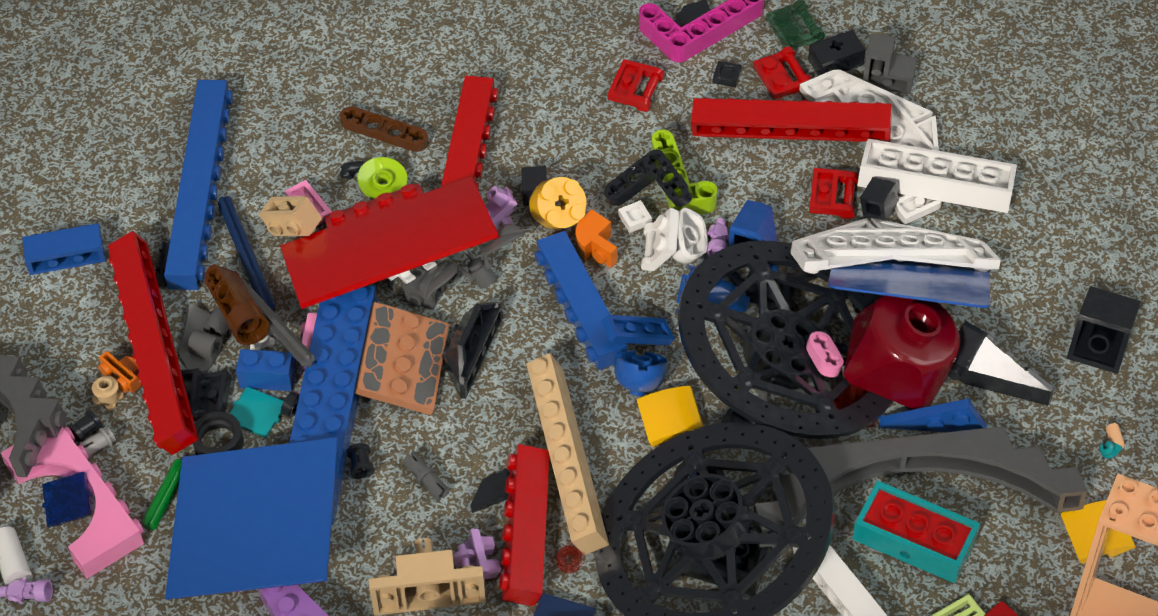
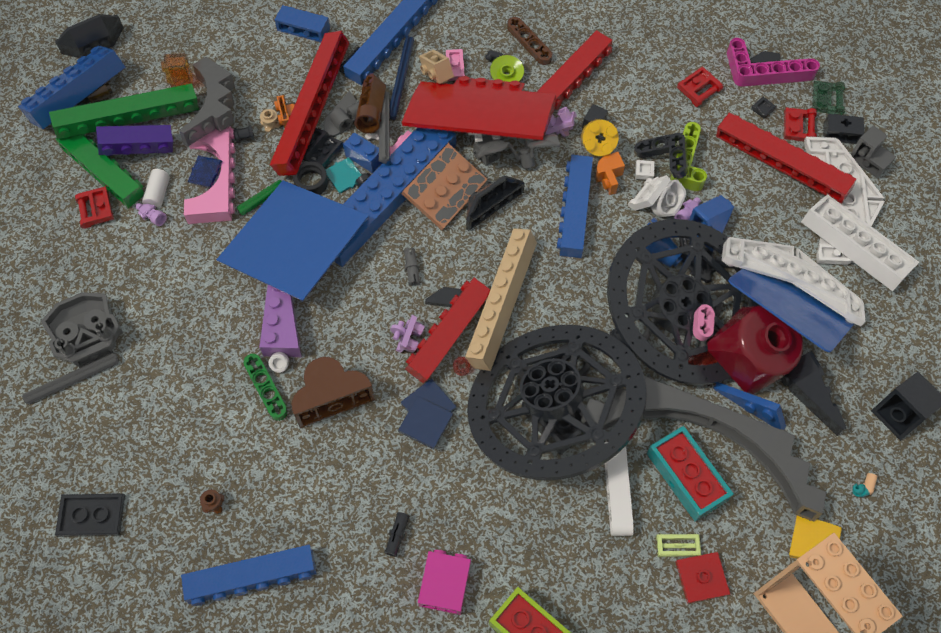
camera: 30 degrees right, 10 degrees up
(98, 441) = (245, 146): light grey pin -> none
(360, 460) = (380, 236): black bush -> none
(426, 583) = (364, 333): tan brick -> none
(637, 330) = (594, 242): blue plate -> none
(640, 372) = (580, 270): blue cylinder -> none
(669, 414) = (583, 307): yellow slope -> none
(825, 189) = (778, 213): red plate -> none
(879, 198) = (809, 237): black brick -> none

